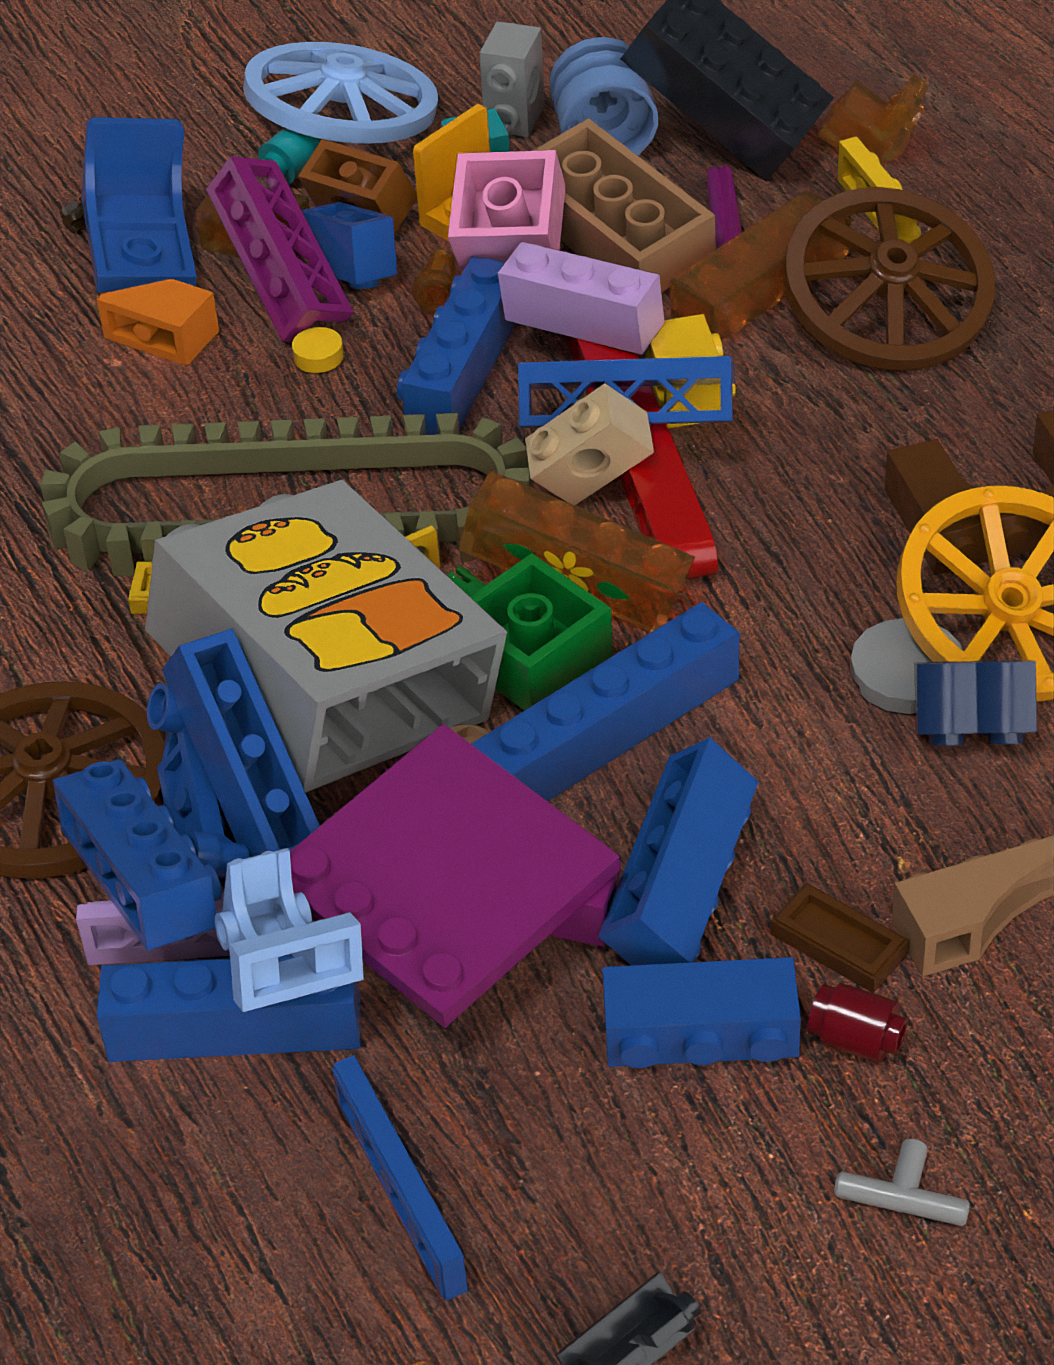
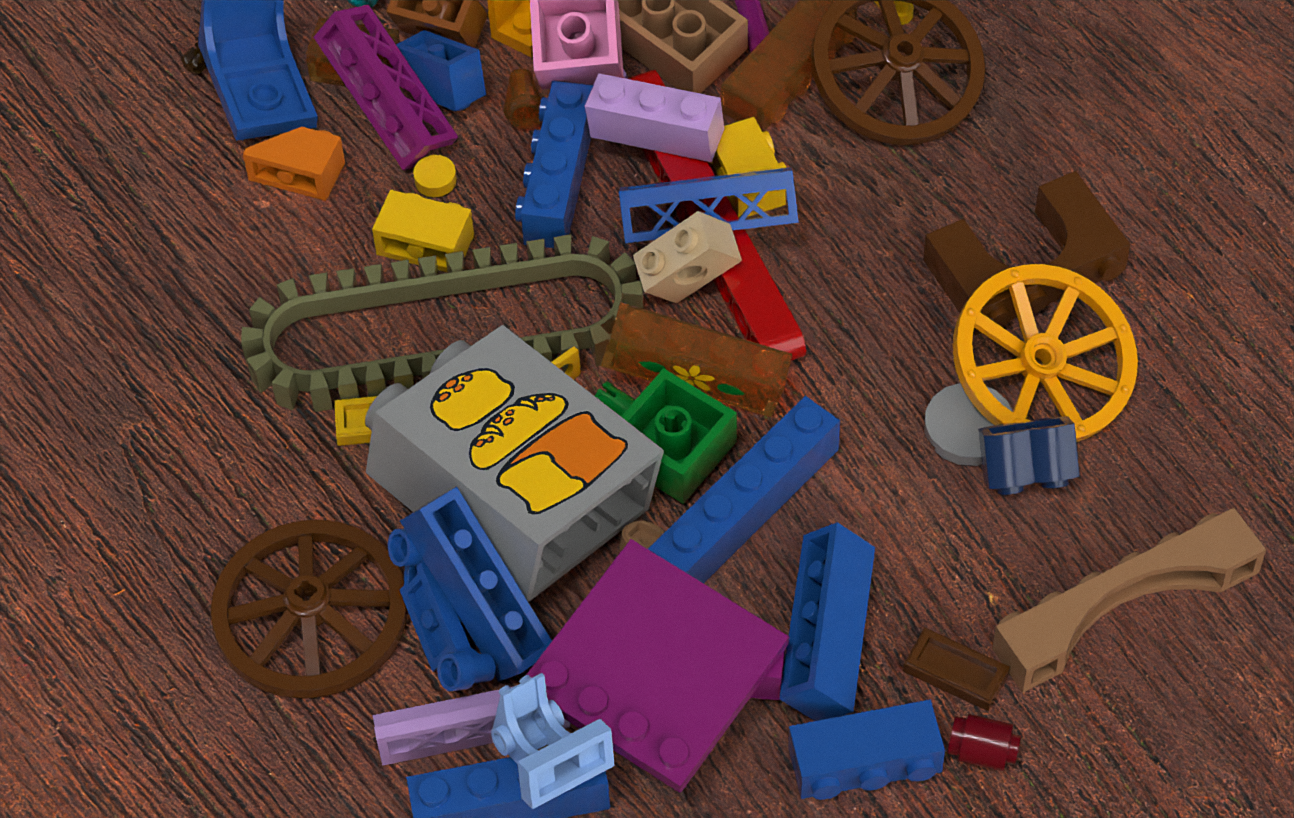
camera: 10 degrees left, 10 degrees up
(137, 853) = (412, 679): blue brick -> none
(285, 389) = (420, 228): none -> yellow brick

